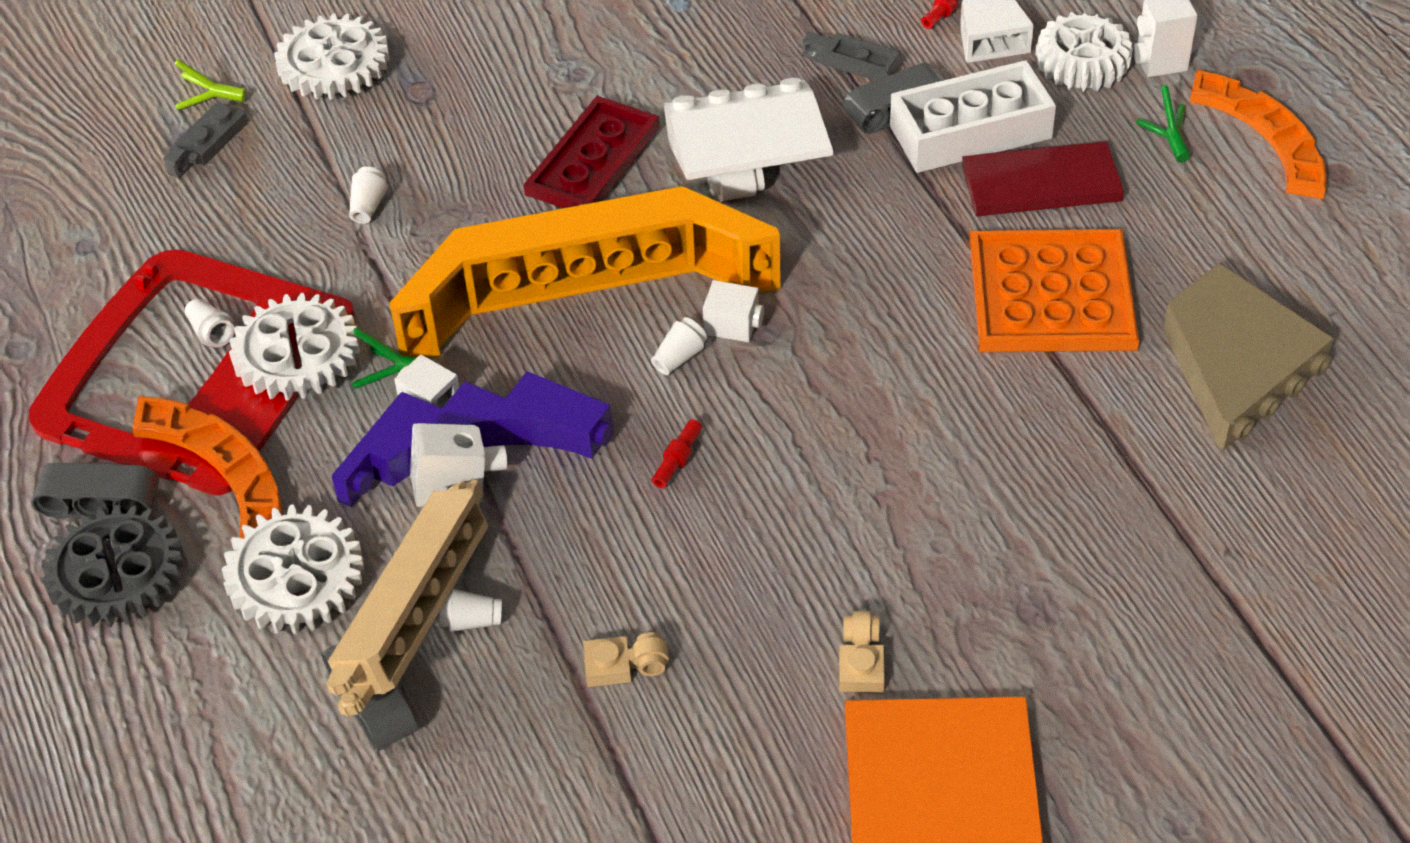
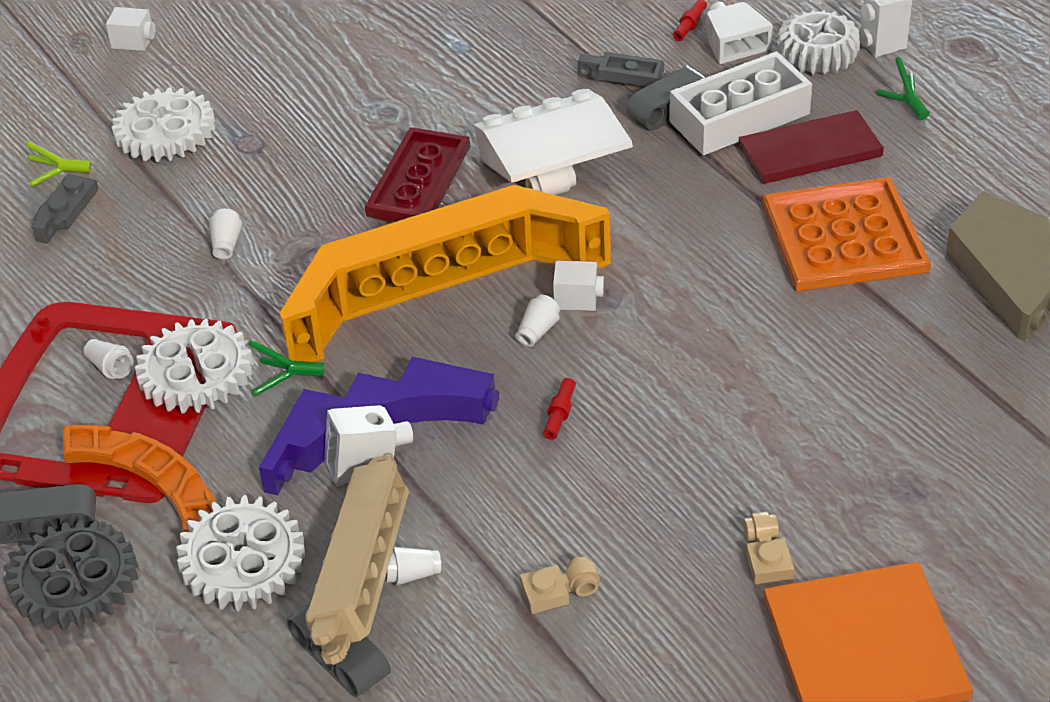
camera: 10 degrees left, 5 degrees down
(427, 381) = (323, 377): white brick -> none
(1277, 124) = (1011, 92): orange tile -> none

